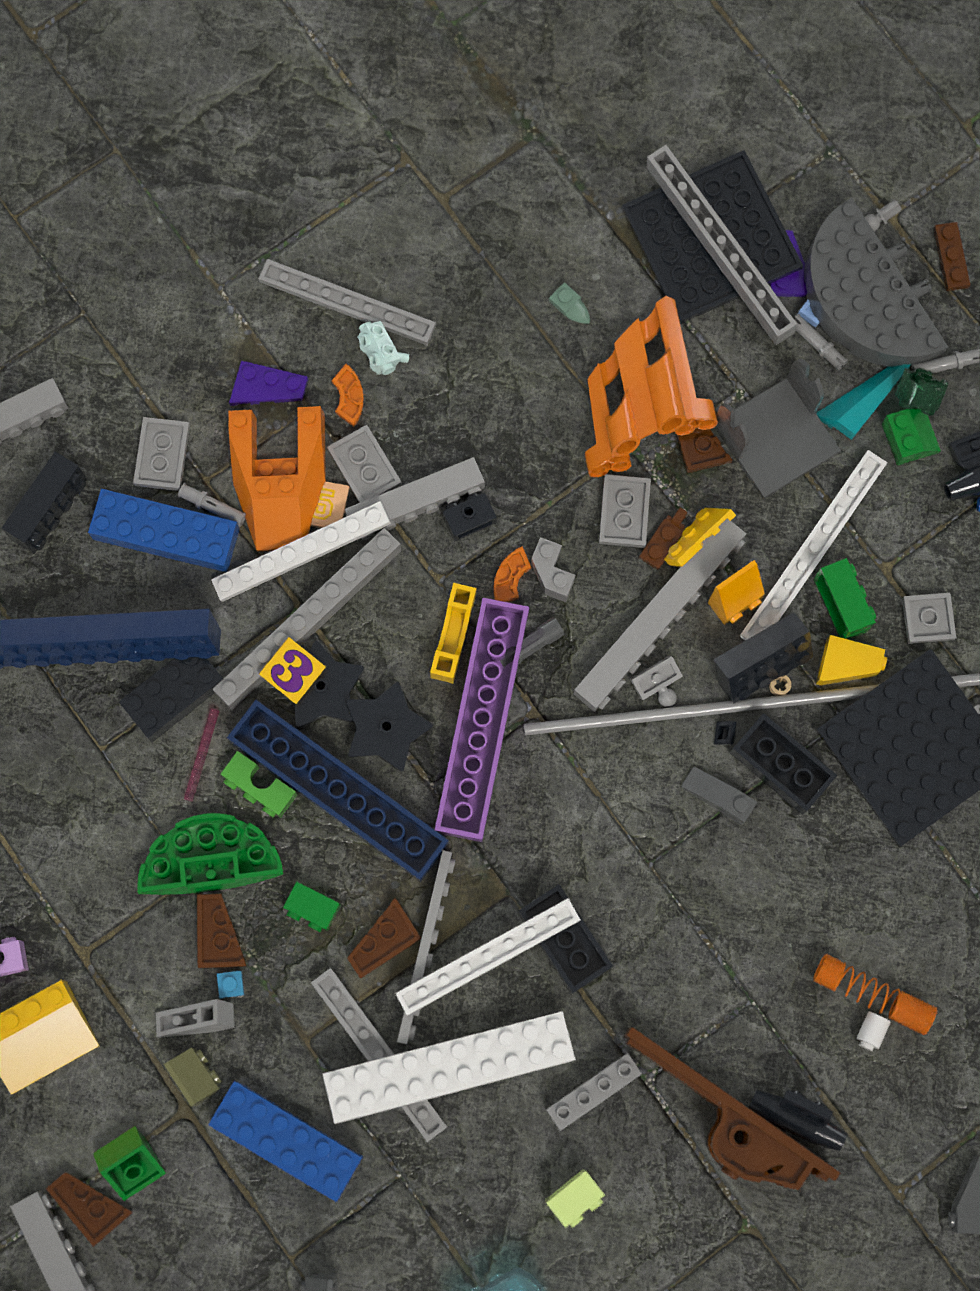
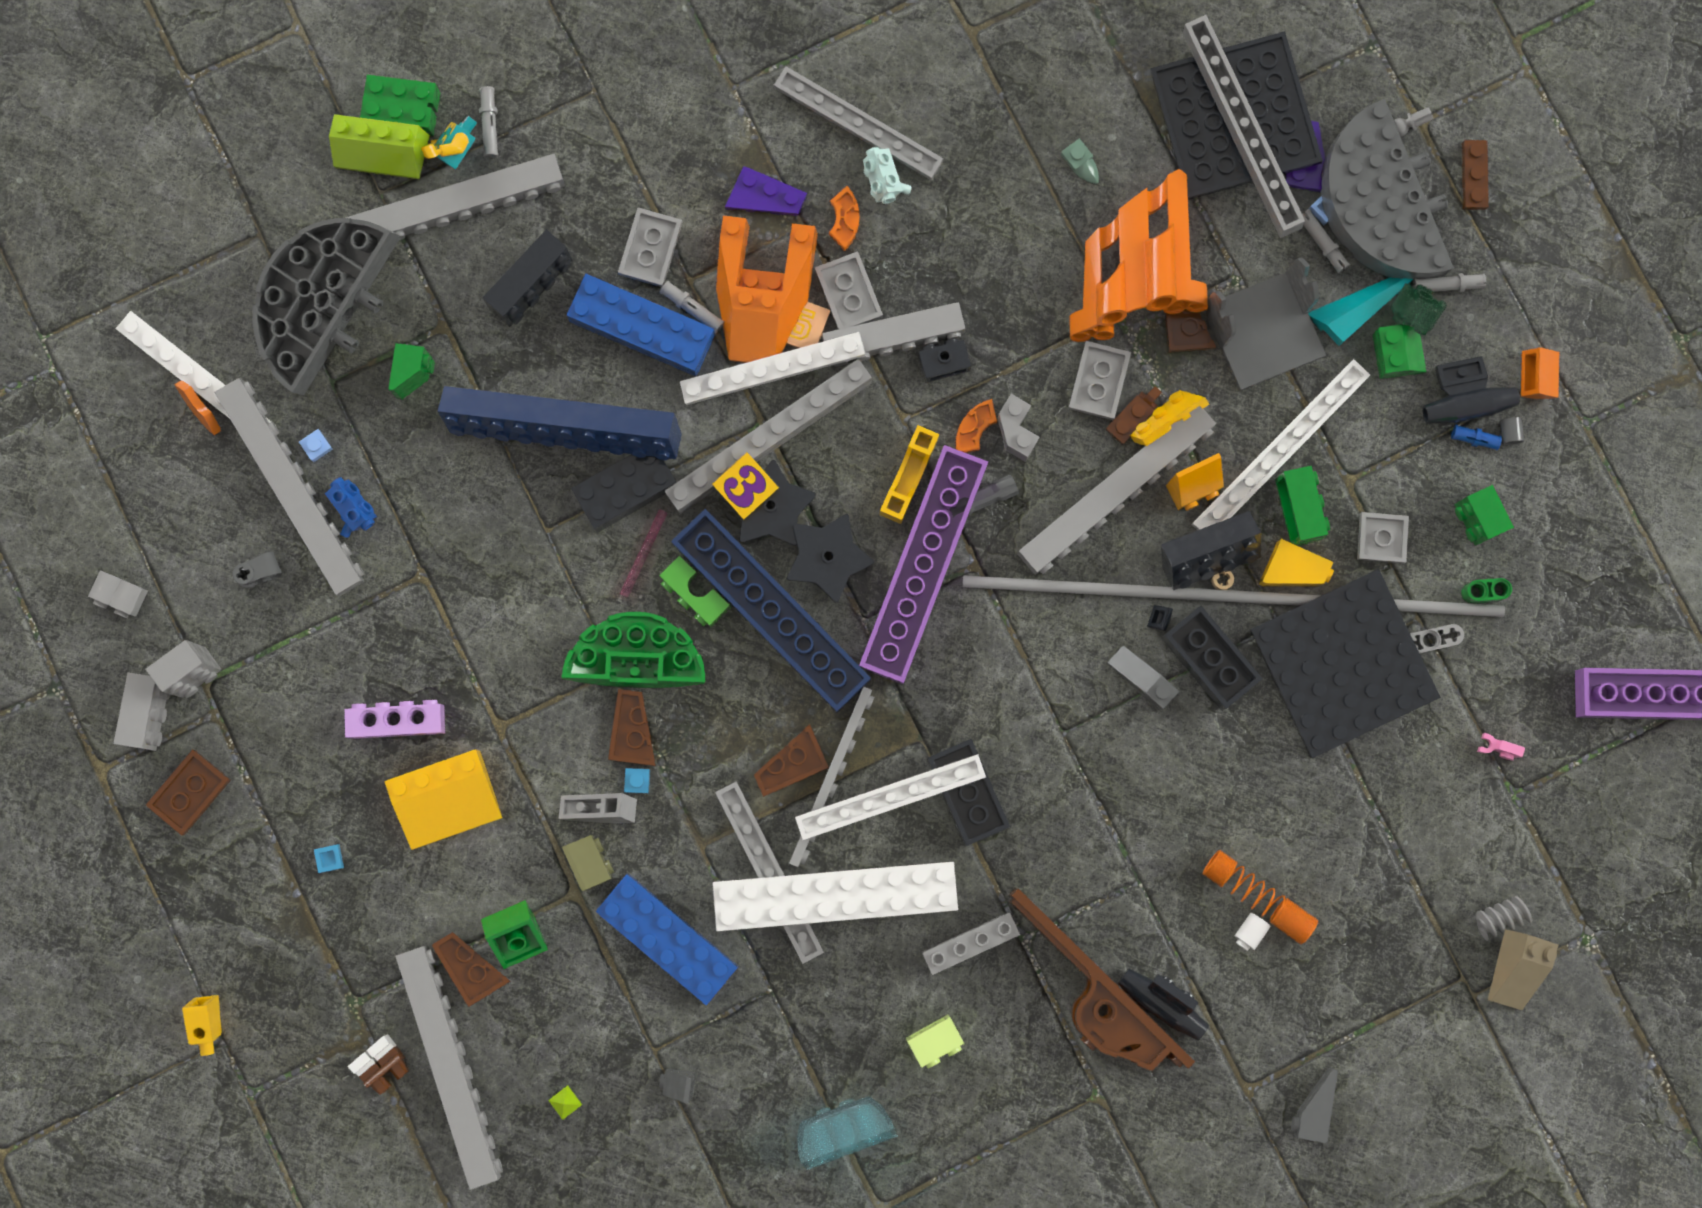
camera: 10 degrees right, 5 degrees up
(311, 906) = (727, 719): green brick -> none
(656, 679) = (1101, 554): light grey plate -> none

